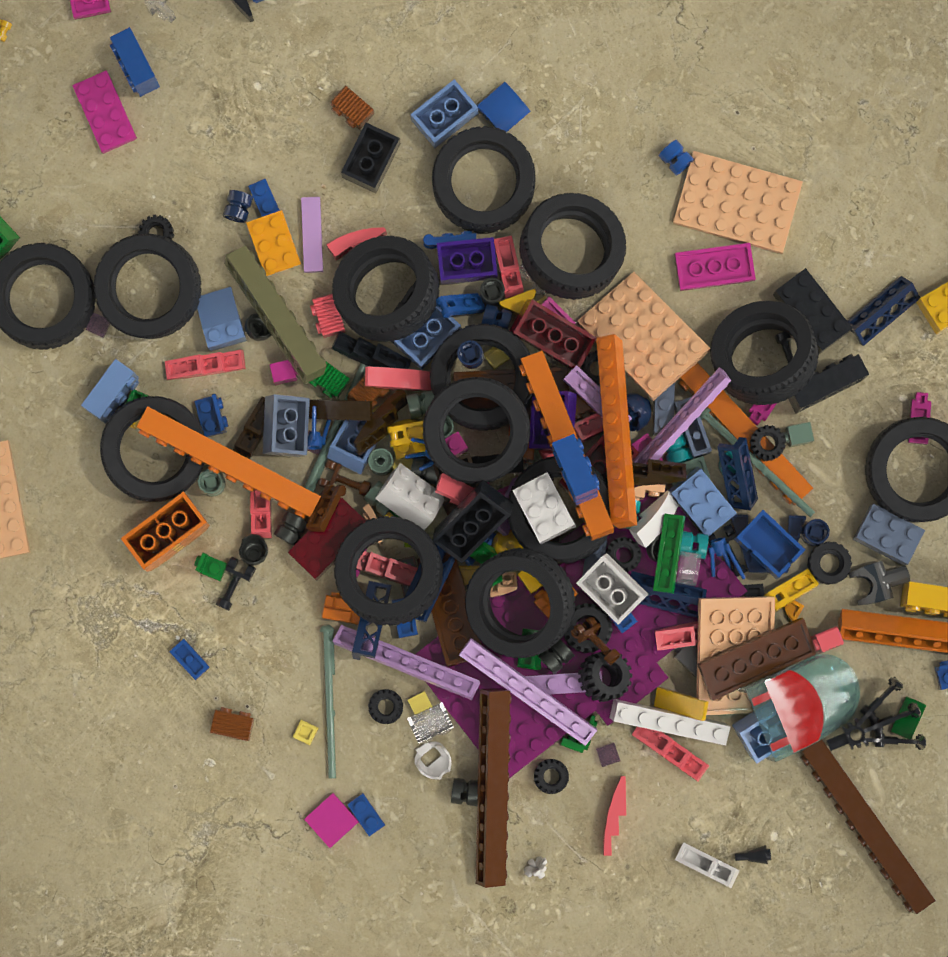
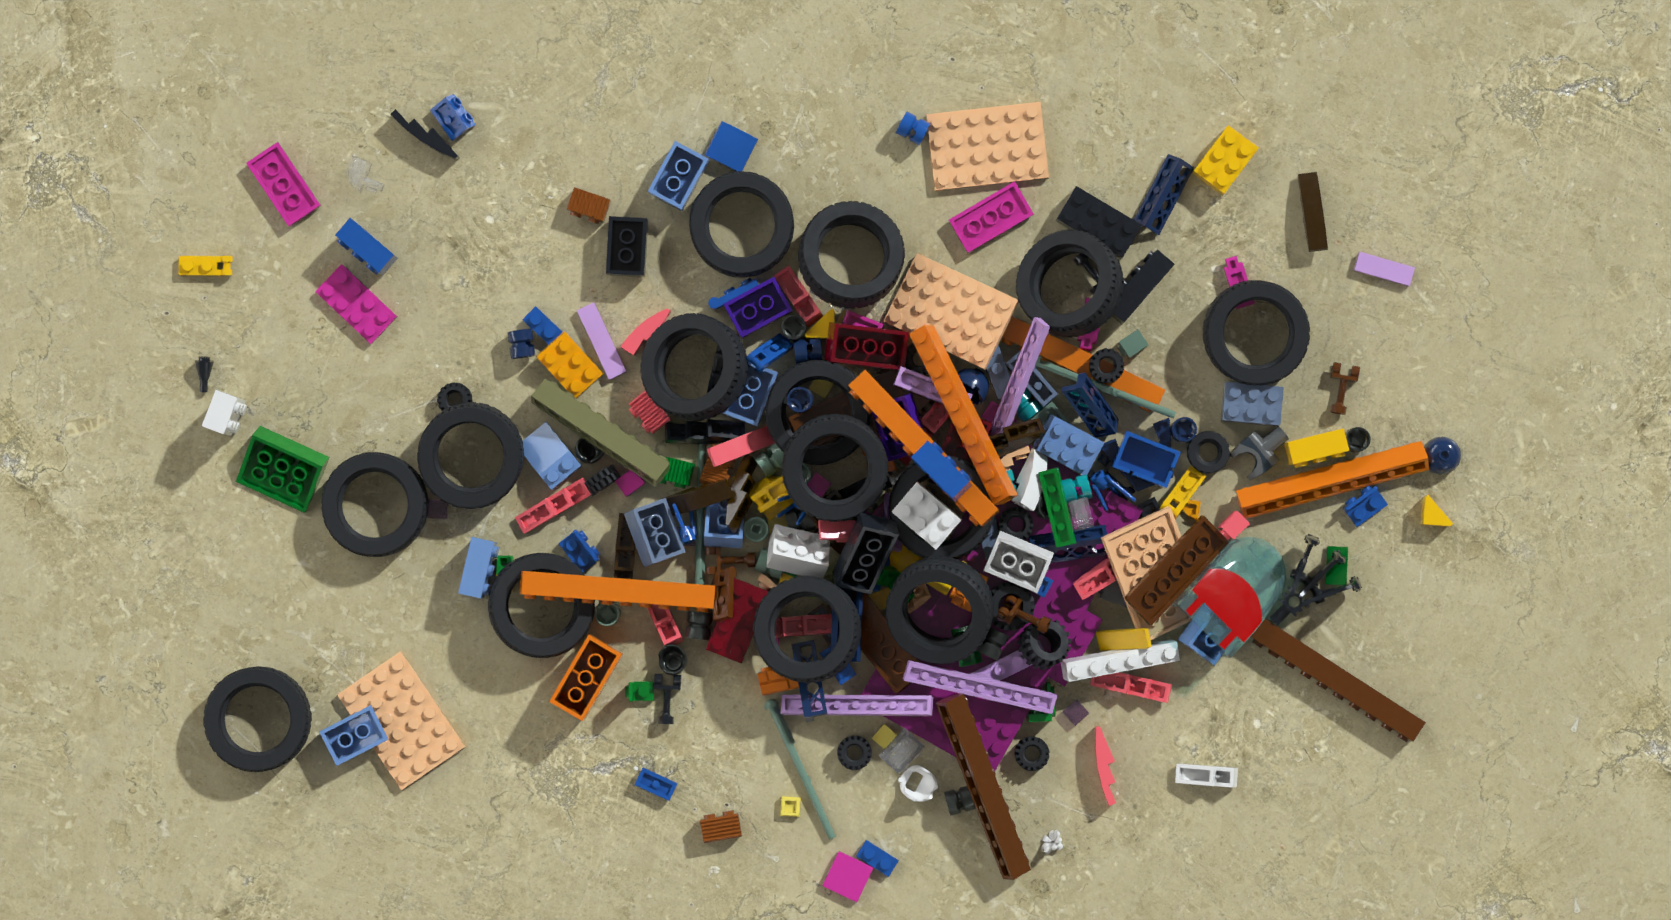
camera: 20 degrees left, 5 degrees up
(258, 358) = (602, 479): none -> black tyre
(758, 855) = (1249, 747): black cone -> none

